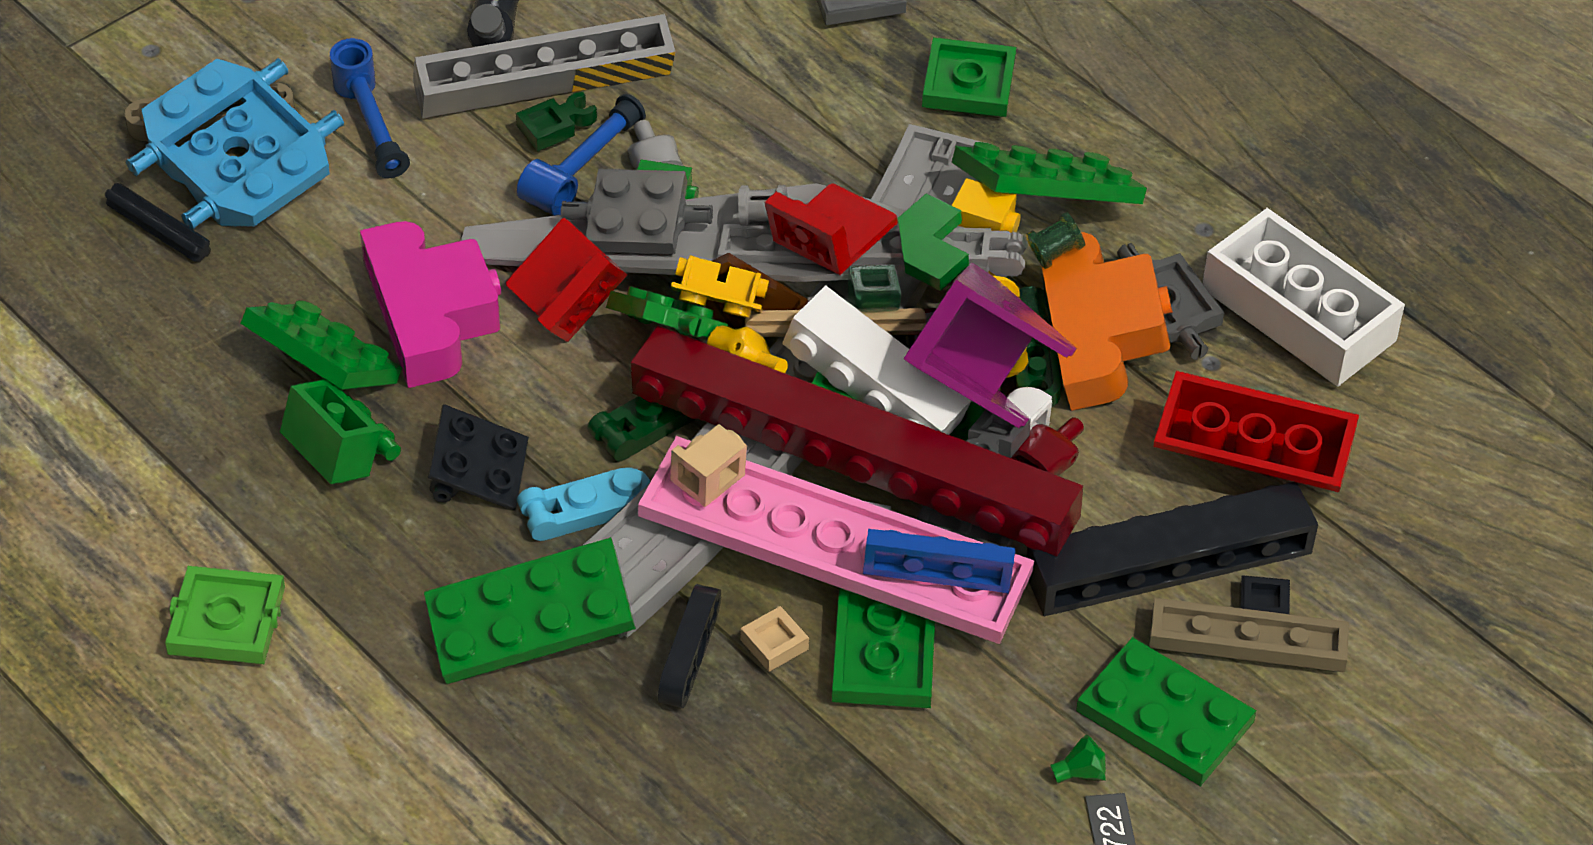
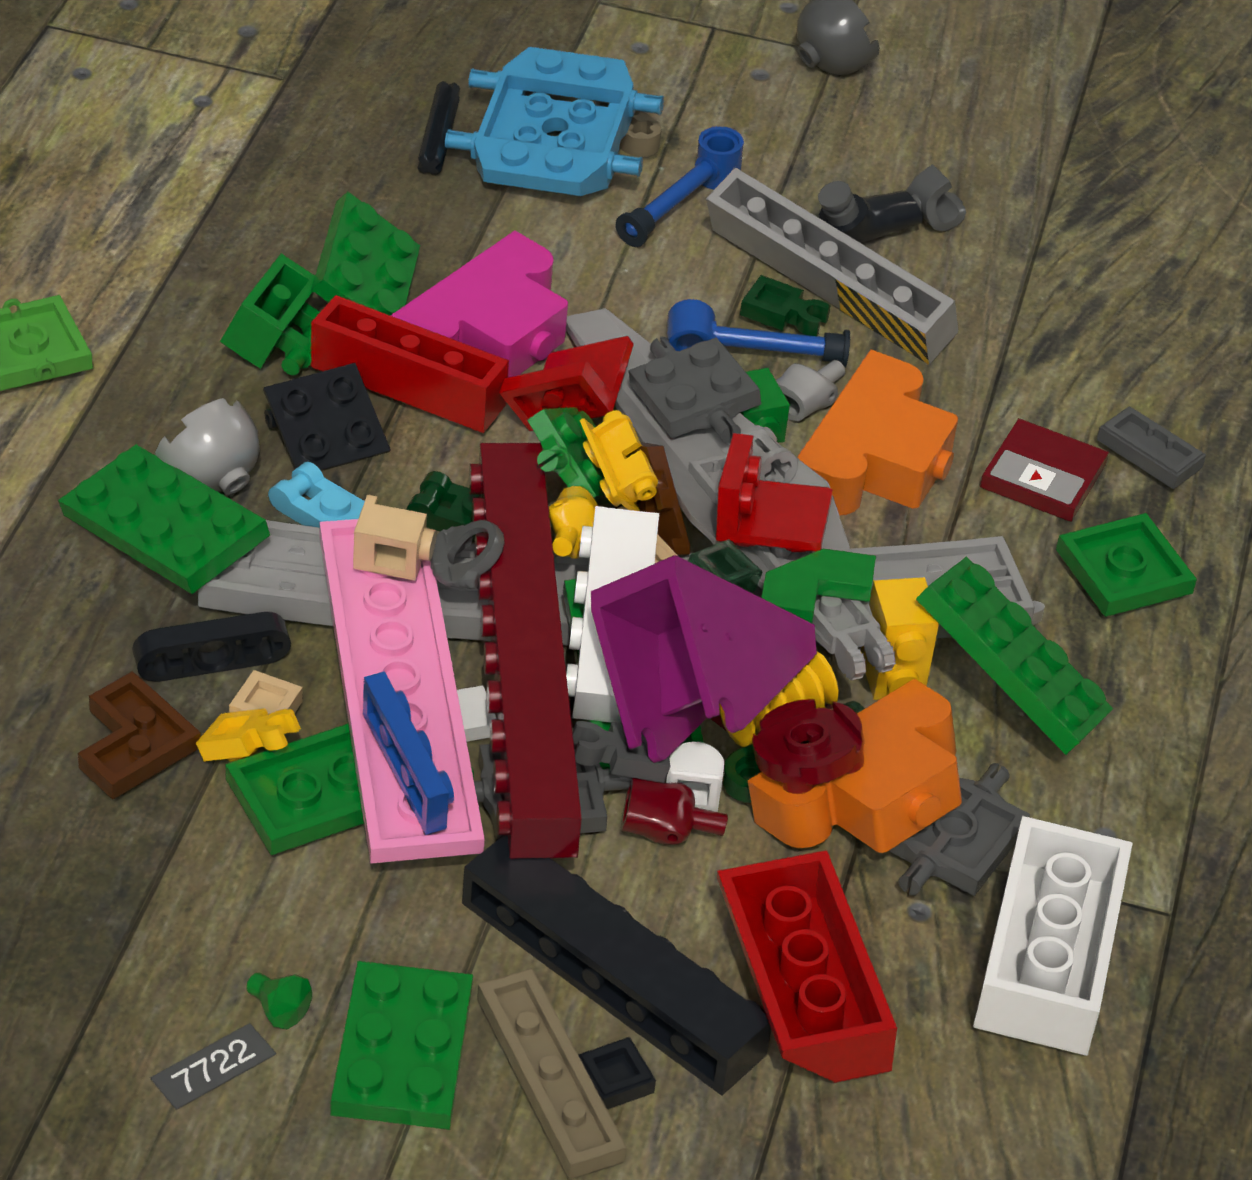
camera: 55 degrees right, 5 degrees down
(463, 371) = (410, 363): none -> red brick
(476, 539) = (215, 447): none -> light grey cylinder
(743, 139) = (882, 437): none -> orange brick
(756, 725) = (144, 737): none -> reddish brown plate
(769, 440) = (455, 540): none -> dark grey piece
(804, 666) = (242, 732): none -> yellow plate
(836, 69) = (1044, 469): none -> dark red tile
(1055, 240) = (909, 680): clear green bush -> none
(1095, 324) = (832, 749): none -> dark red plate

